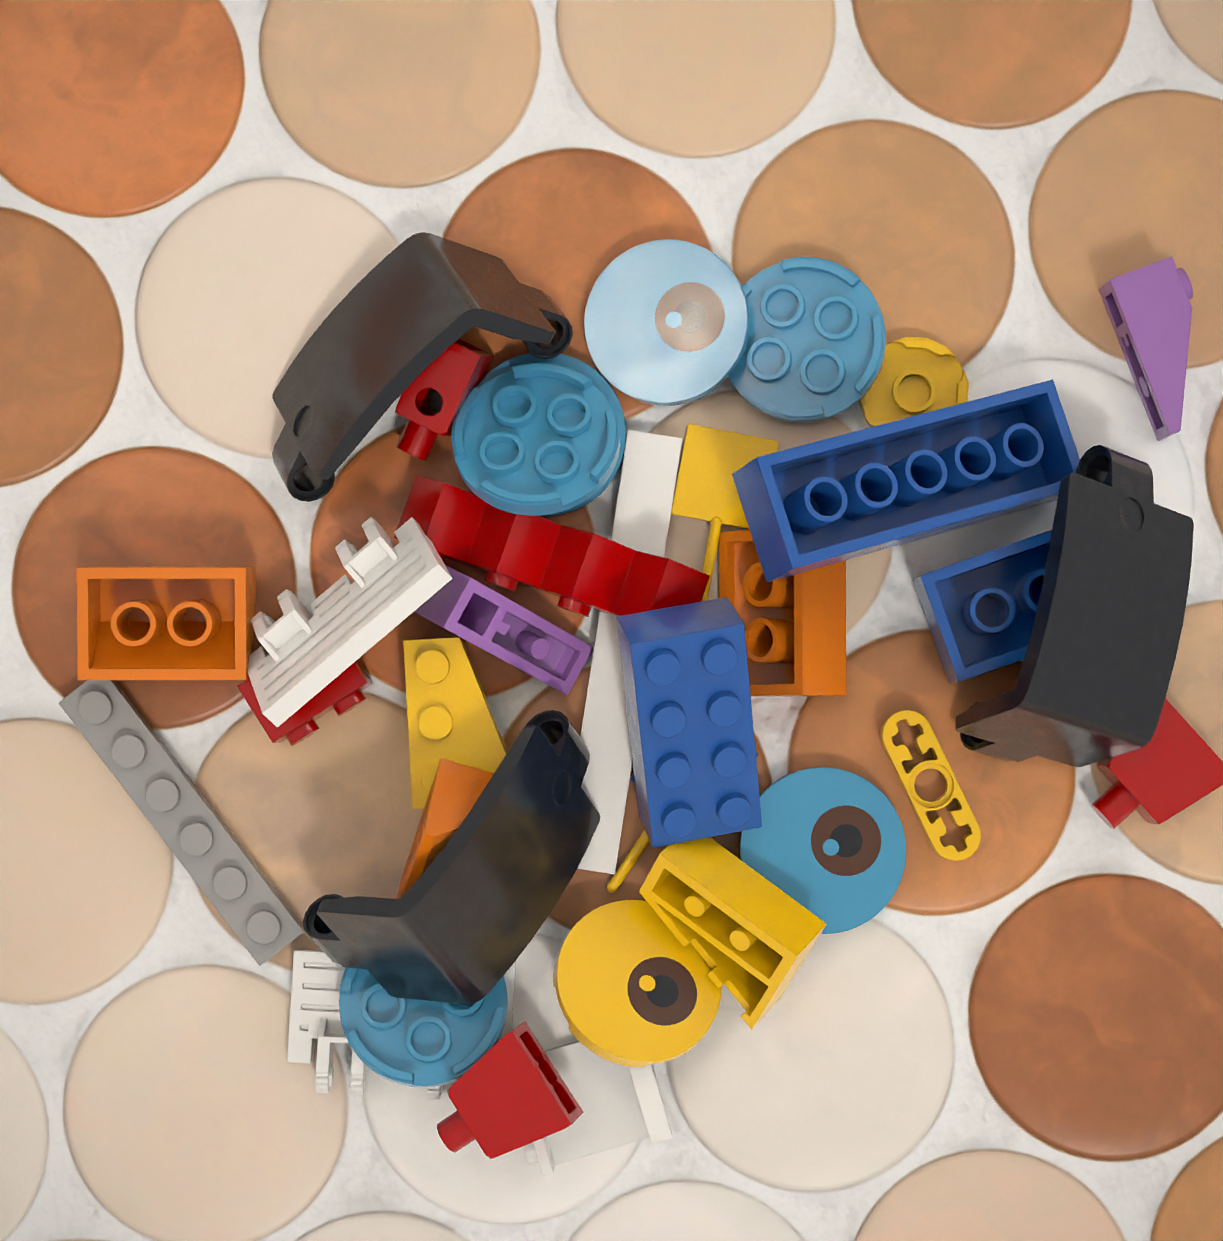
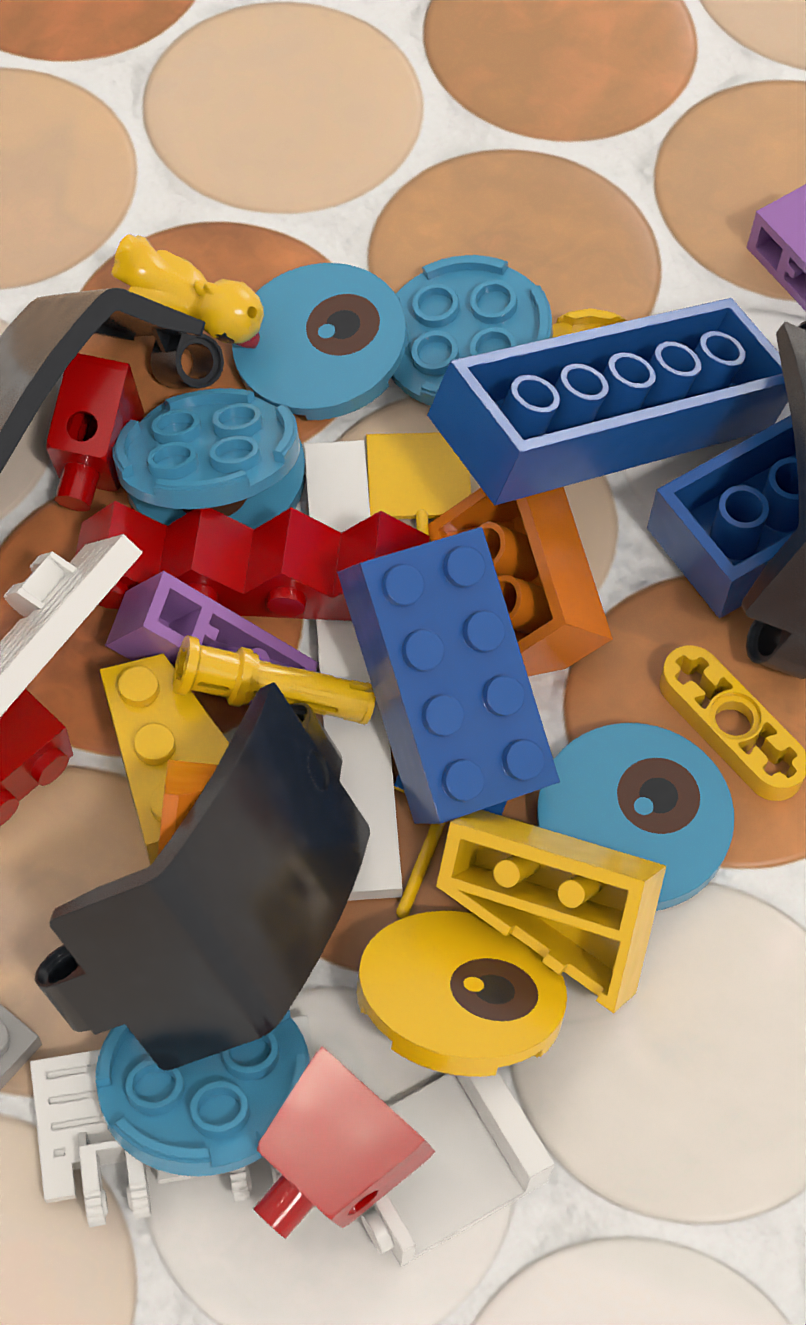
camera: 20 degrees left, 25 degrees down
(521, 681) = (241, 675): none -> yellow pin
(544, 257) = (227, 306): none -> yellow animal

